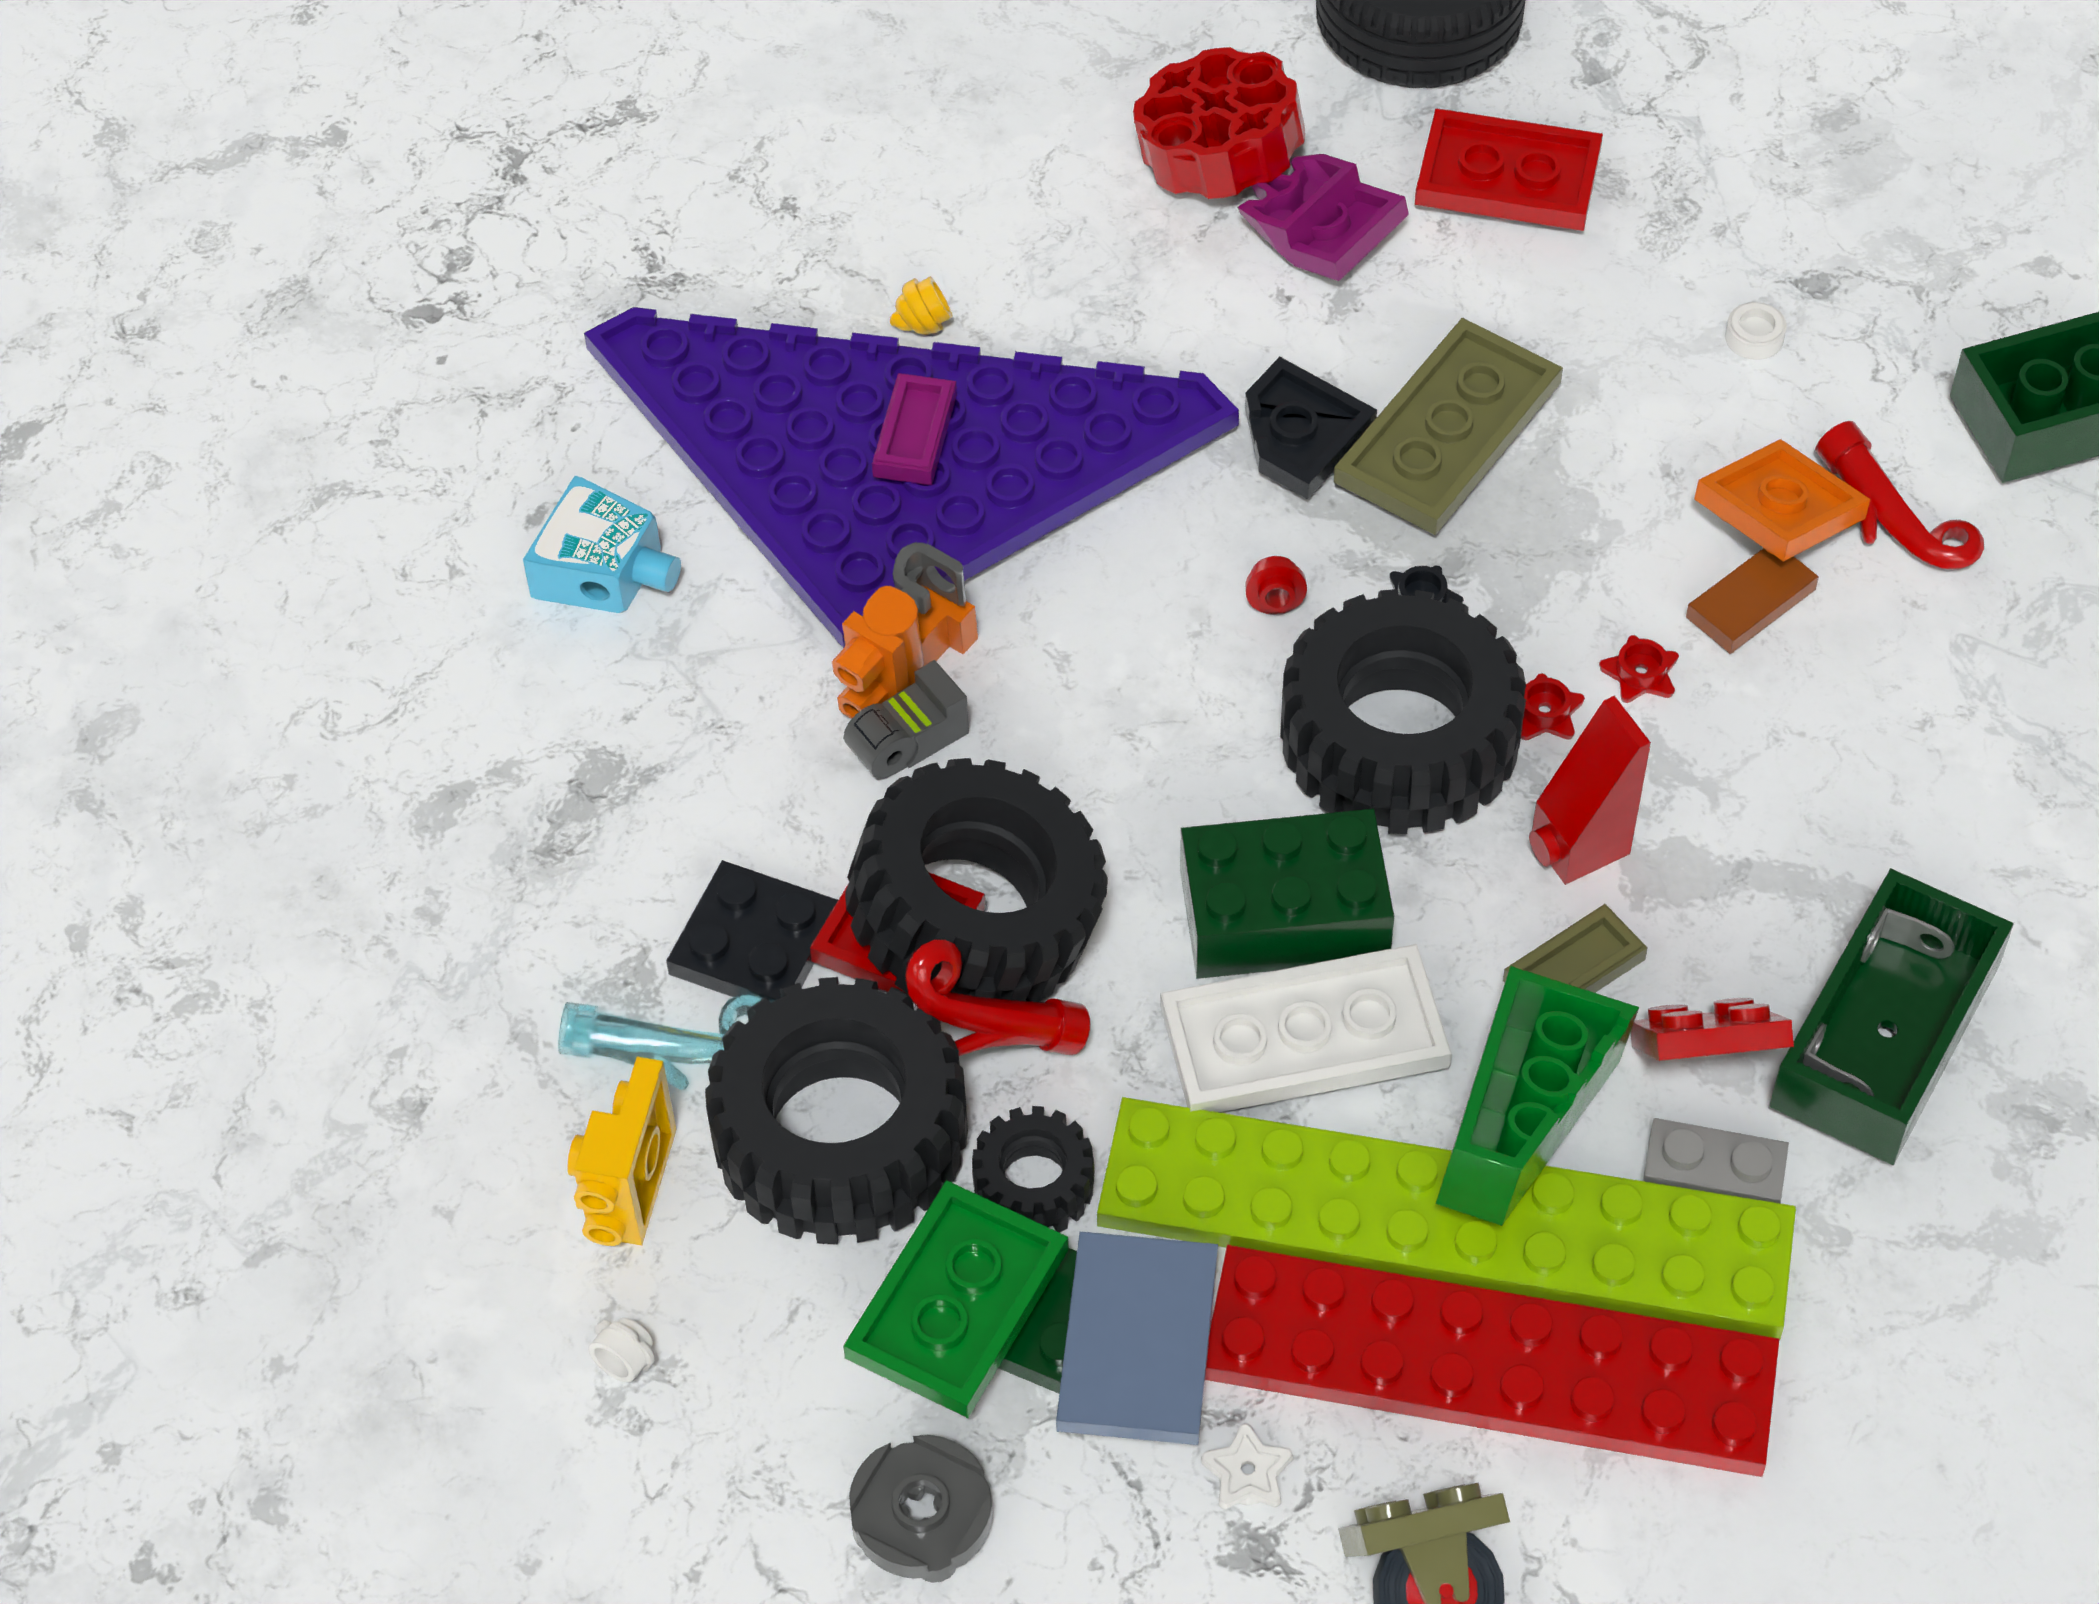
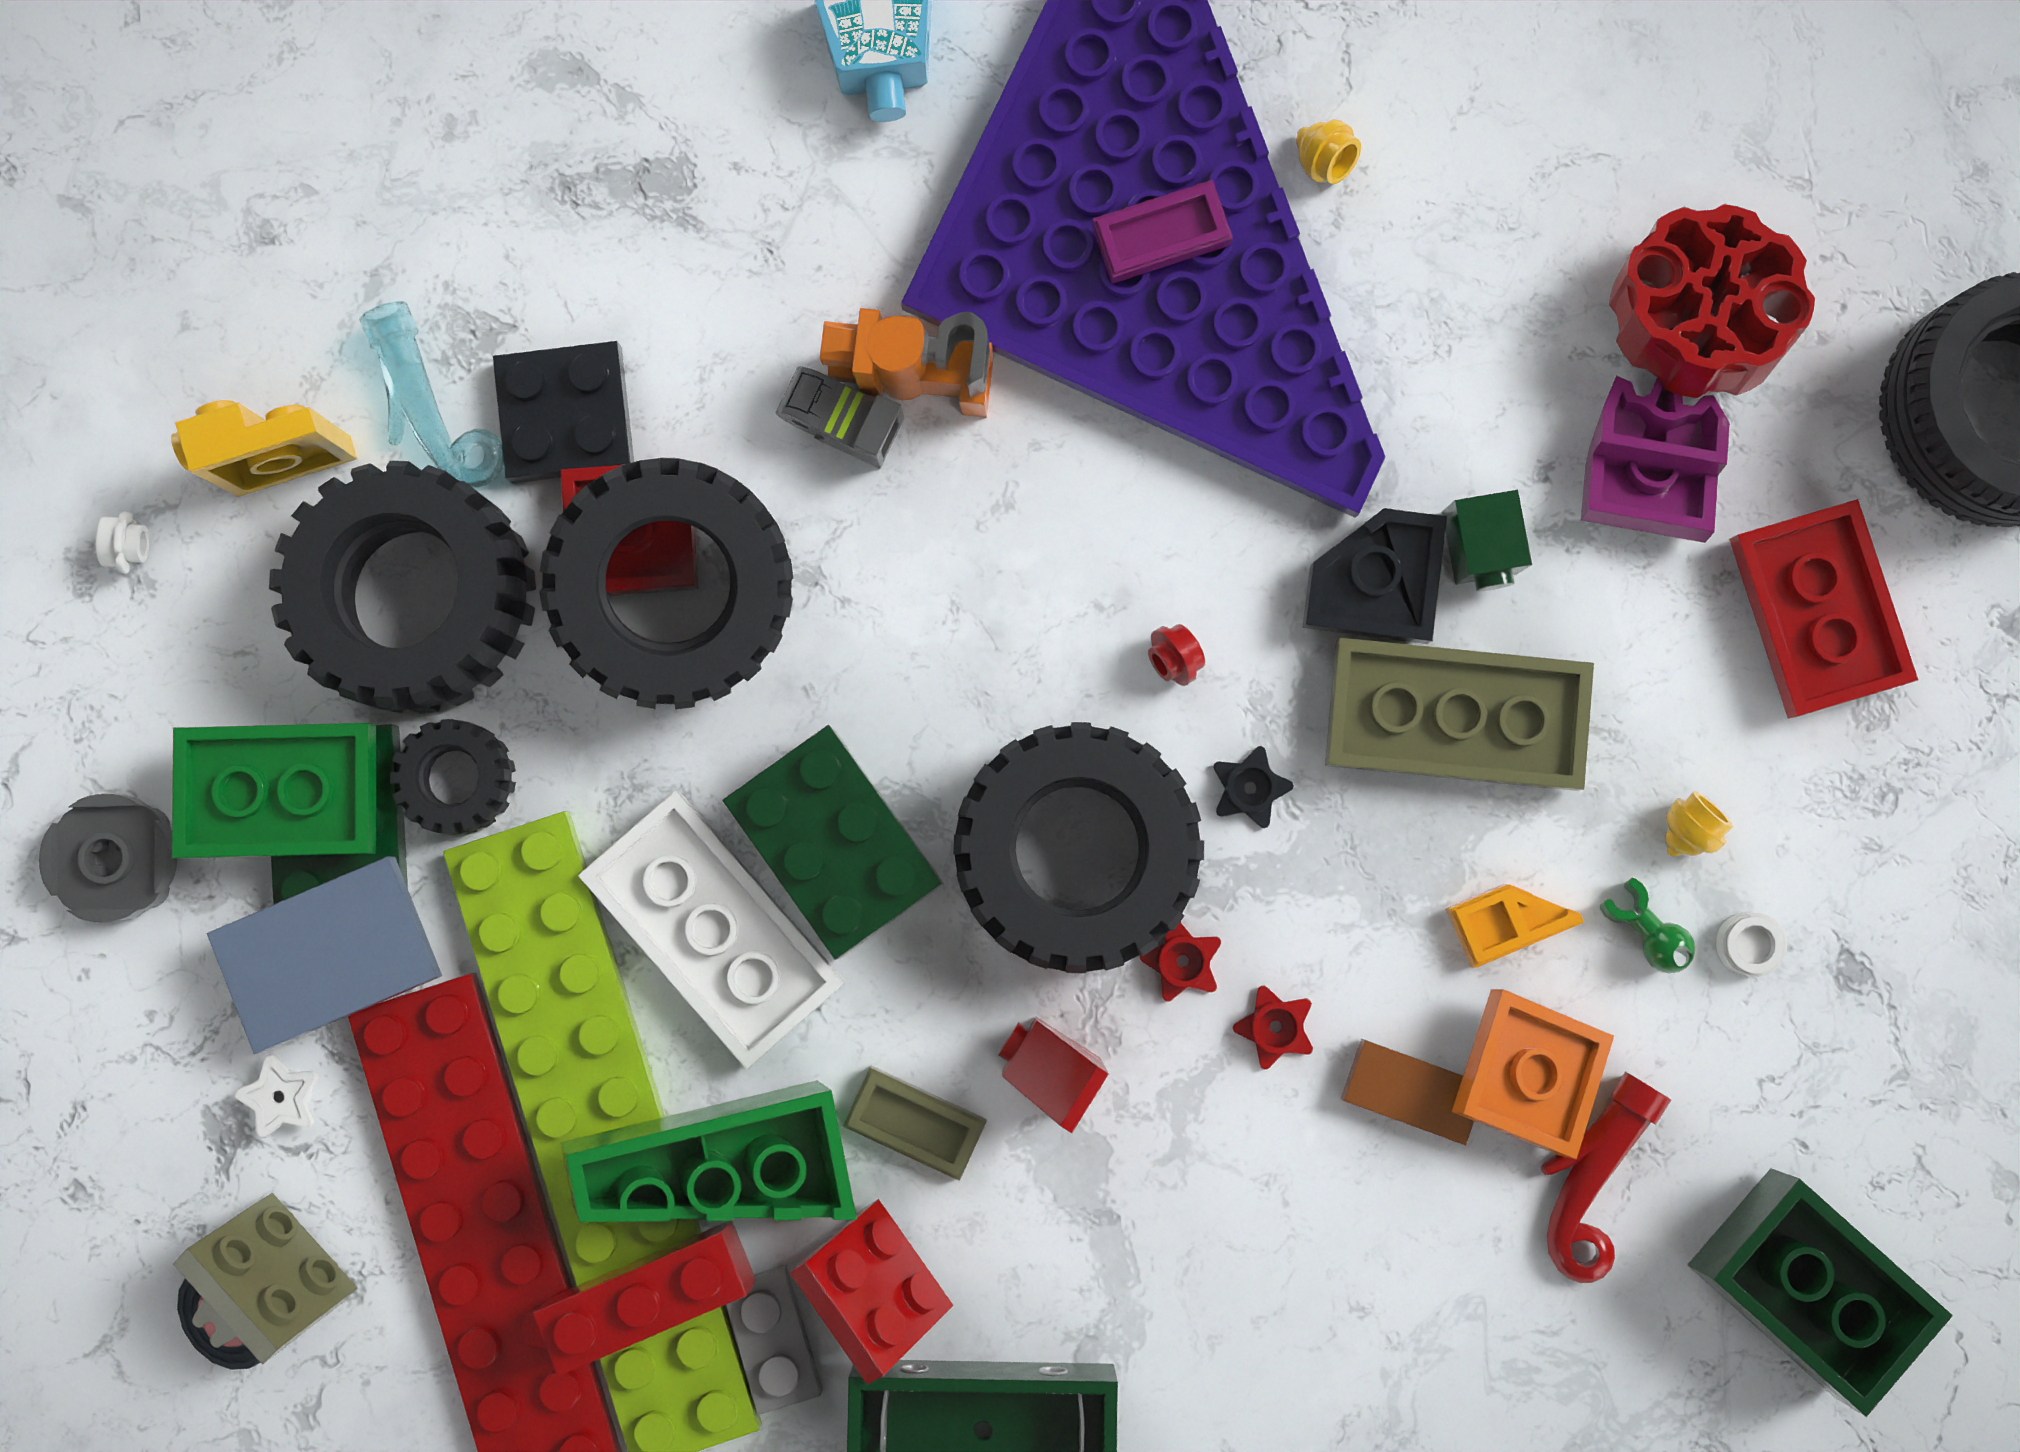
camera: 60 degrees right, 30 degrees up
(1051, 1025) = (516, 617): red plant -> none
(1318, 338) = (1487, 540): none -> dark green brick
(1619, 1202) = (644, 1298): none -> red brick
(1636, 317) = (1695, 826): none -> yellow plate
(1643, 476) = (1506, 922): none -> light orange tile
(1724, 378) = (1659, 937): none -> green arm

